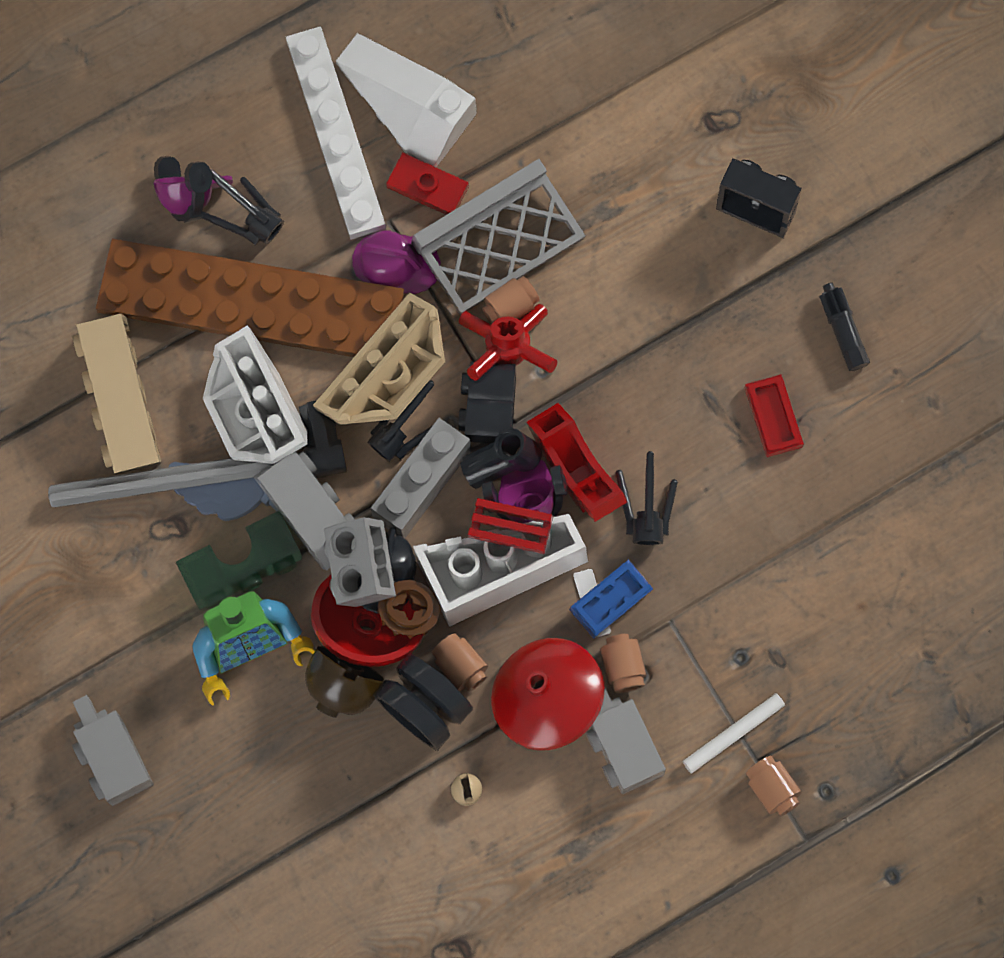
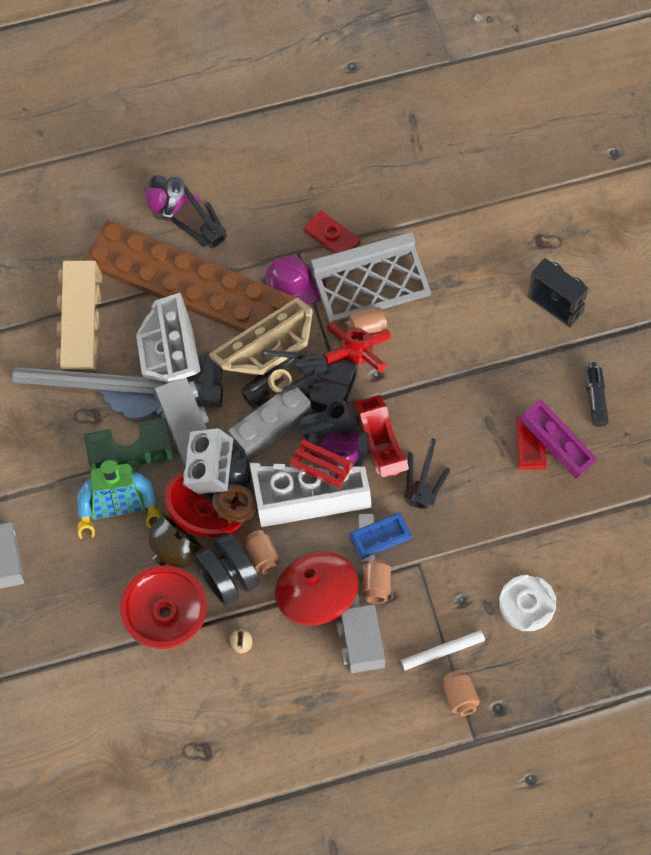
camera: 15 degrees right, 10 degrees down
(335, 133) = (279, 188): white plate -> none
(349, 747) = (161, 590): none -> red dish
(412, 101) = (337, 179): white wedge -> none
(427, 424) = (275, 375): none -> tan hinge
(454, 391) = (308, 365): none -> black plant
(810, 404) = (558, 438): none -> magenta plate
(827, 639) = (527, 603): none -> white tile

